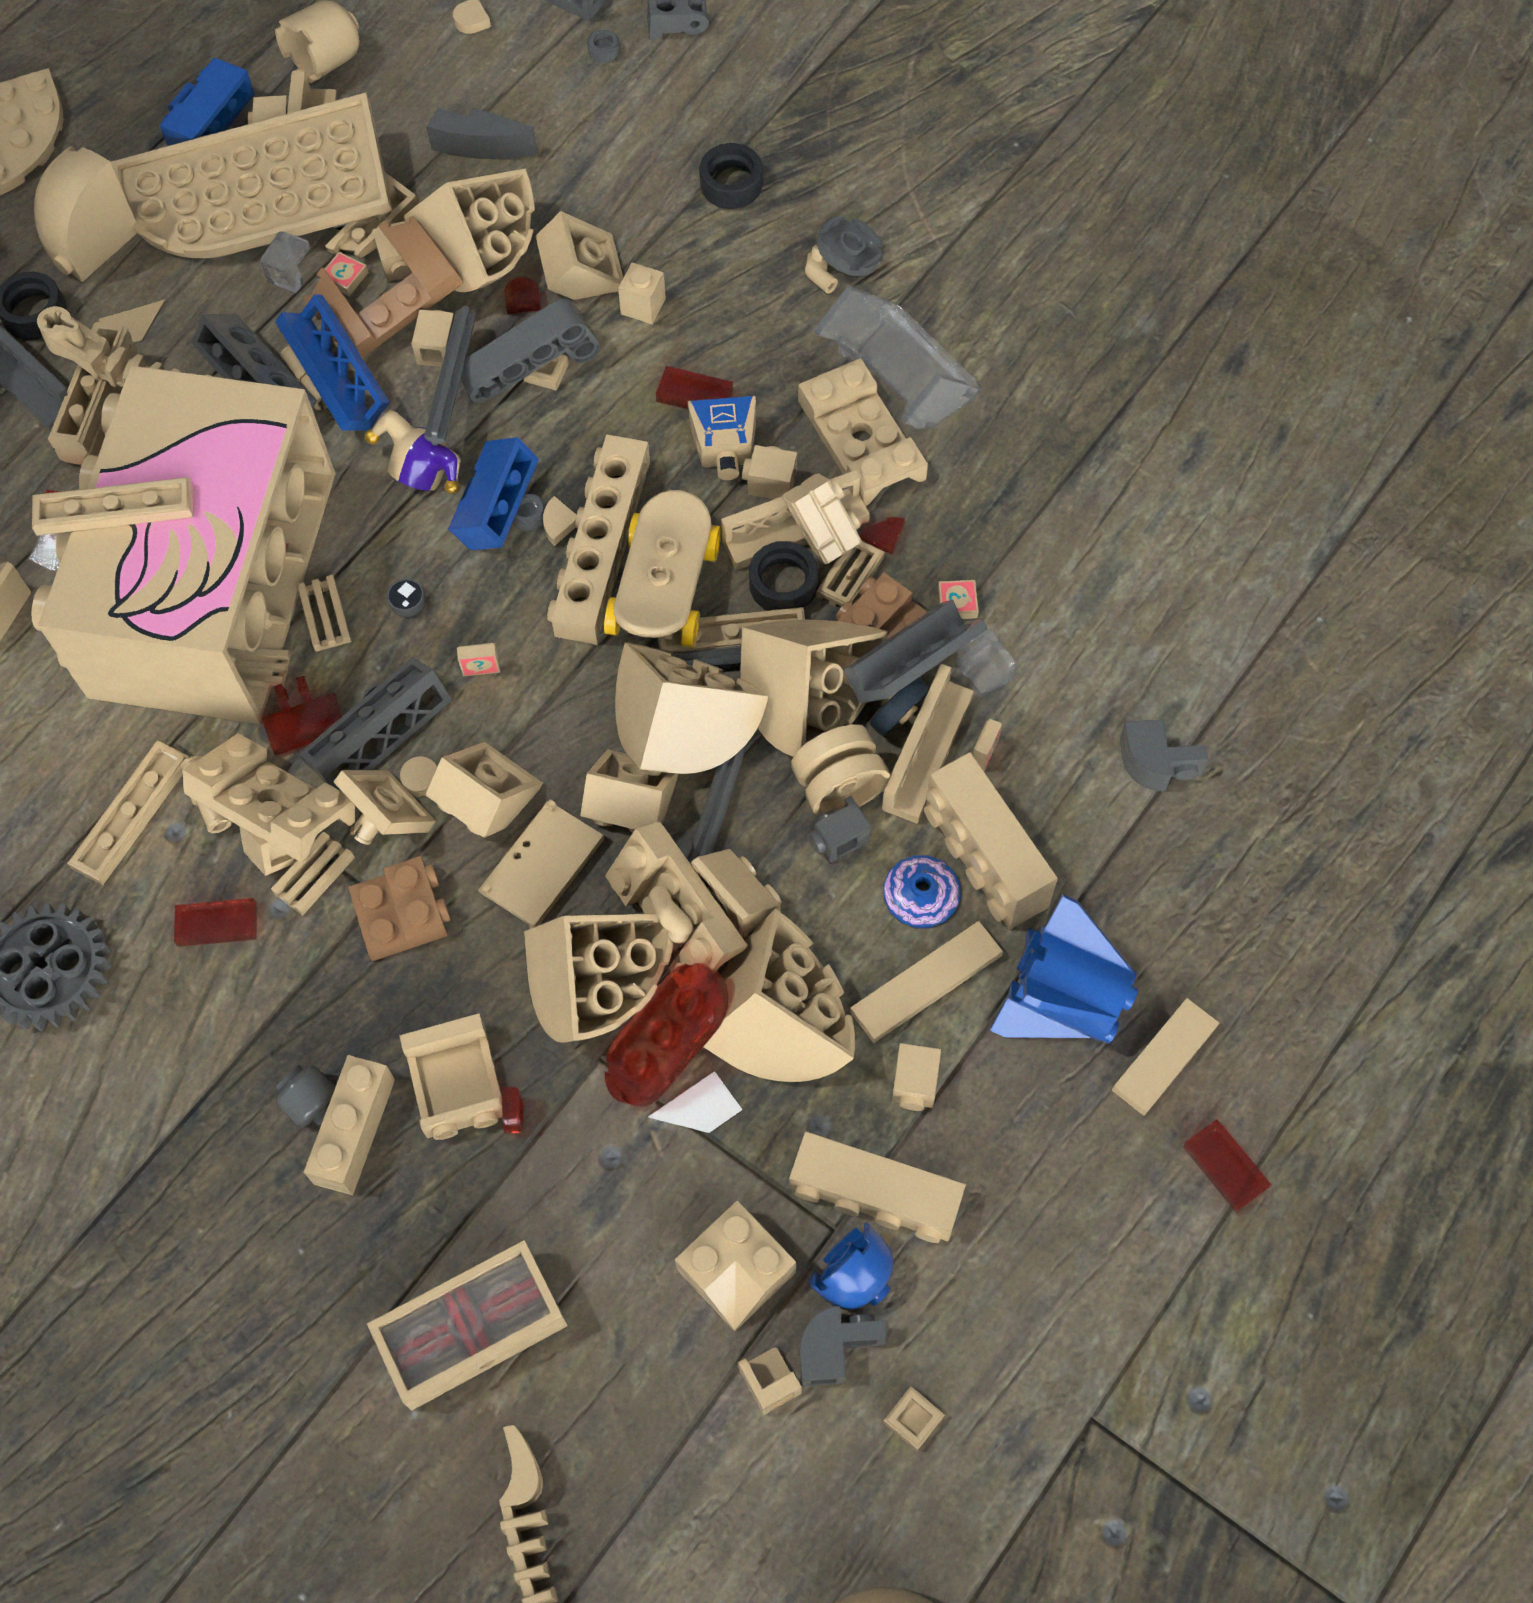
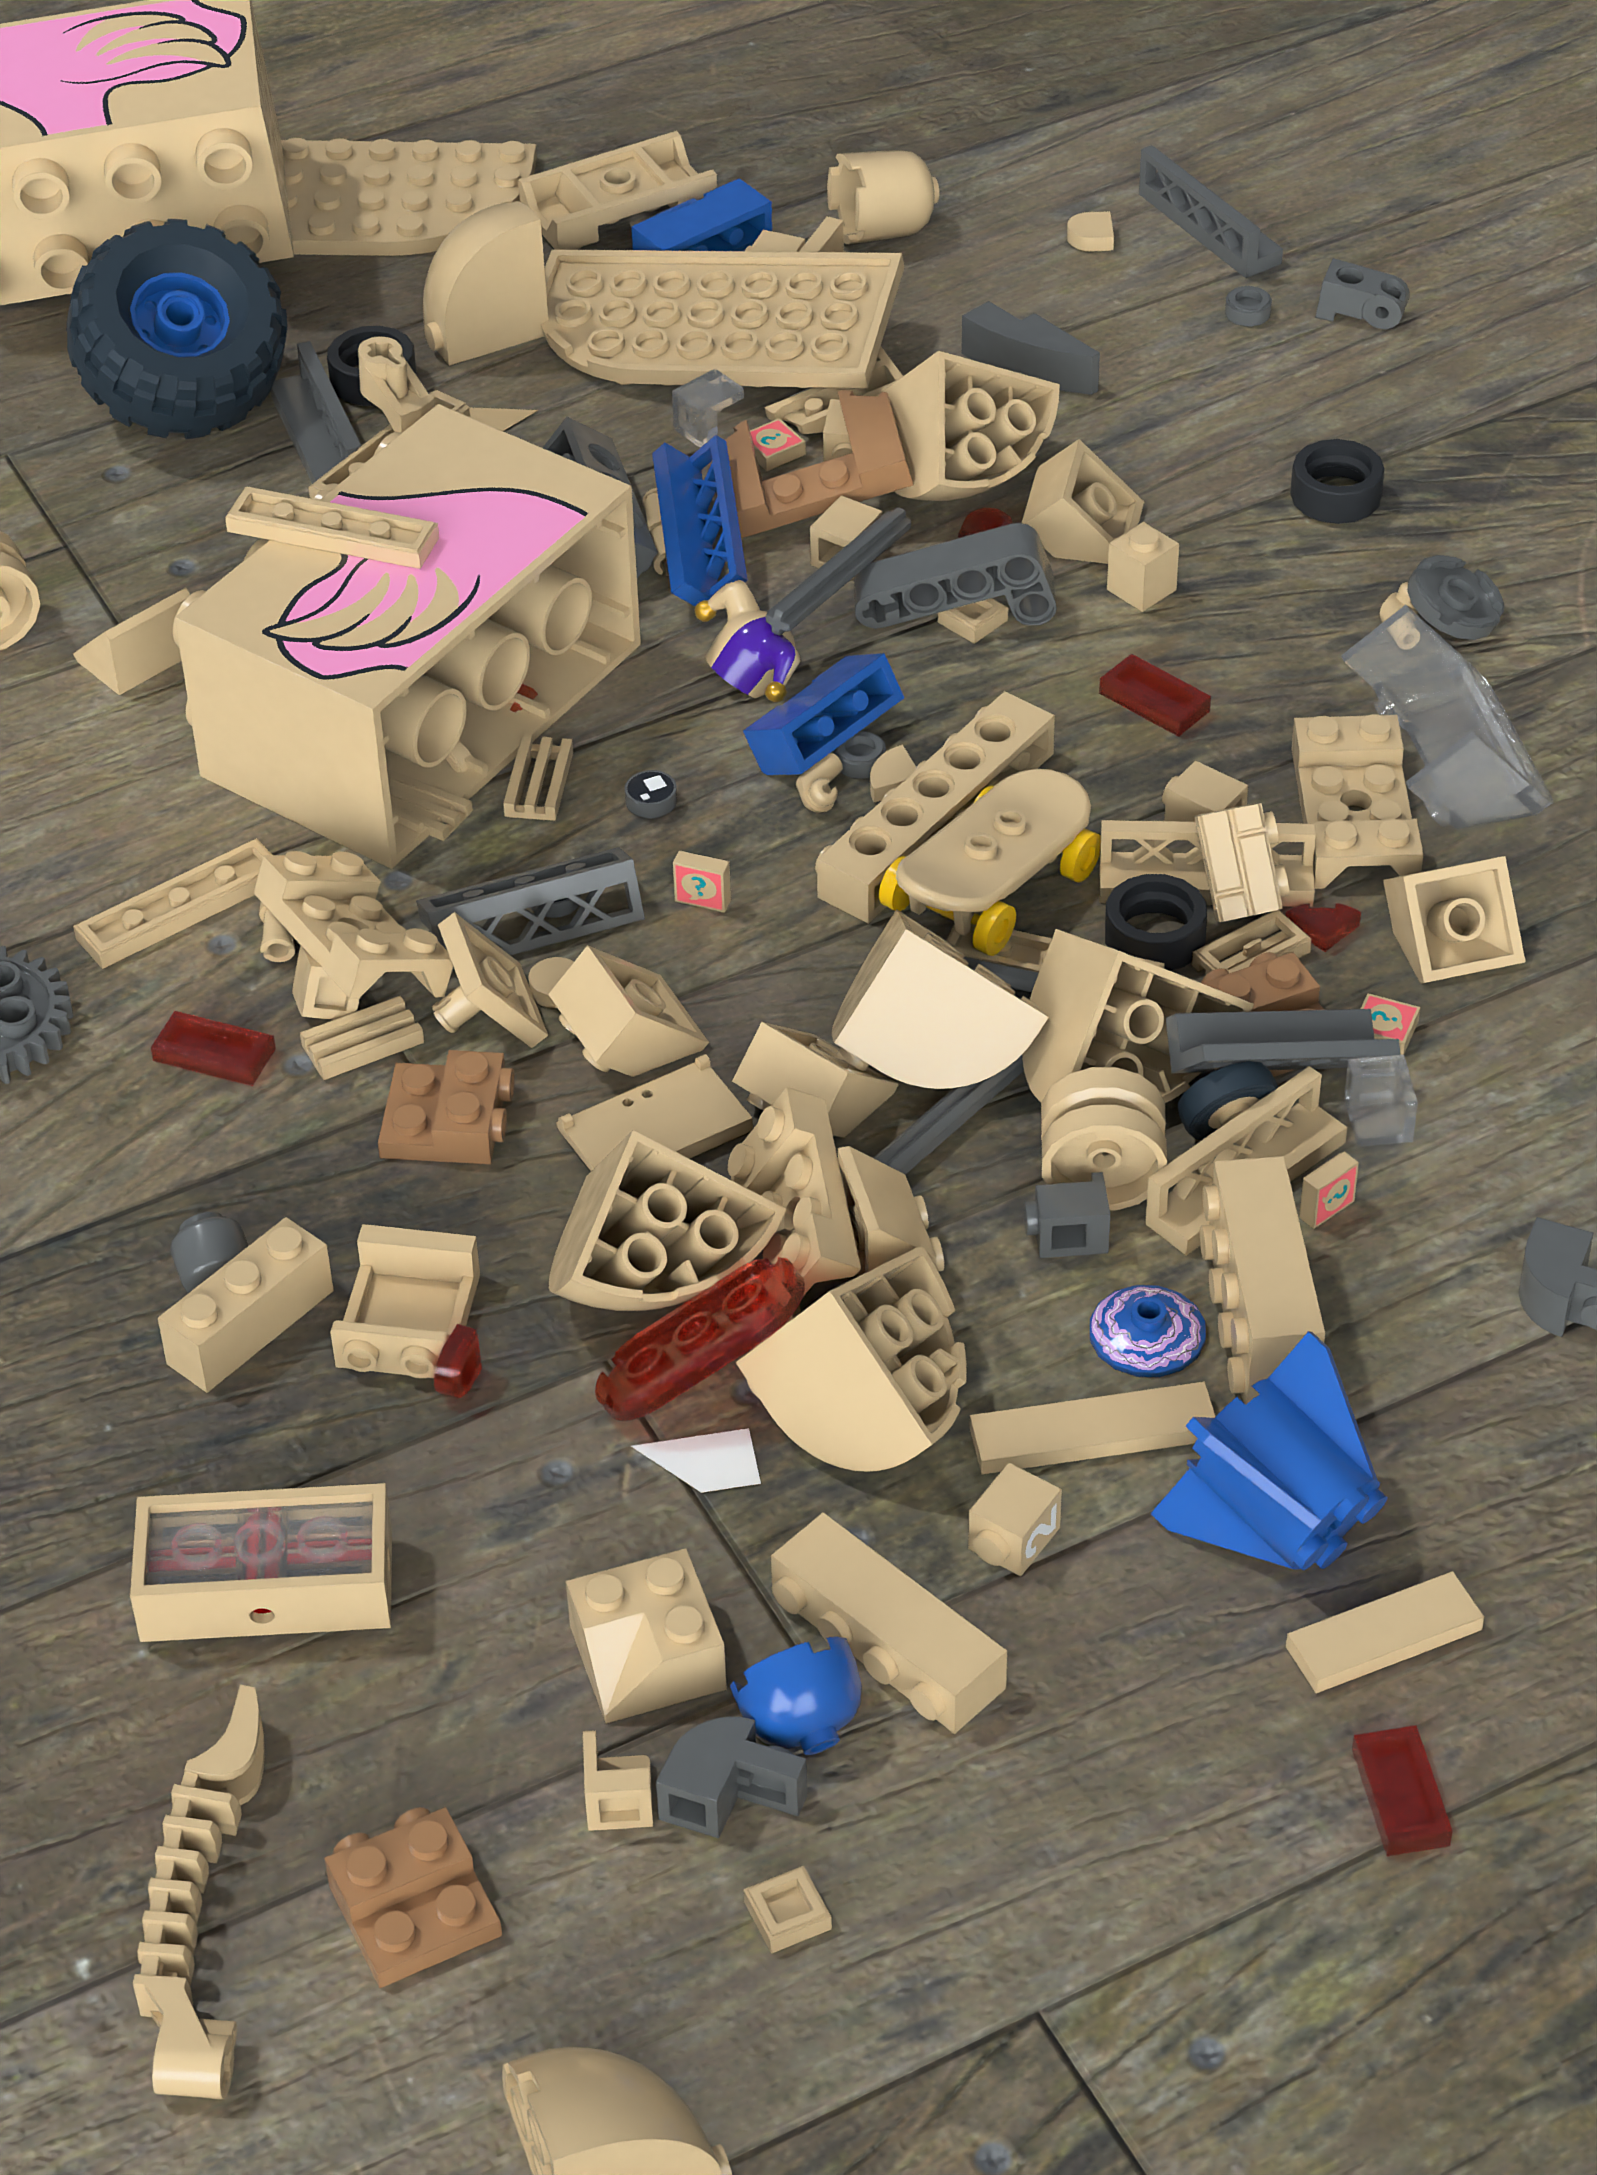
camera: 25 degrees right, 20 degrees down
(106, 114) = (612, 187): none -> tan piece
(301, 723) = (432, 875): clear red hinge -> none
(511, 550) = (814, 784): none -> tan arm
(670, 915) = (779, 1203): tan arm -> none
(684, 1521) = (411, 1895): none -> medium nougat plate
(723, 432) = (1165, 738): torso -> none
(966, 504) = (1456, 919): none -> tan slope

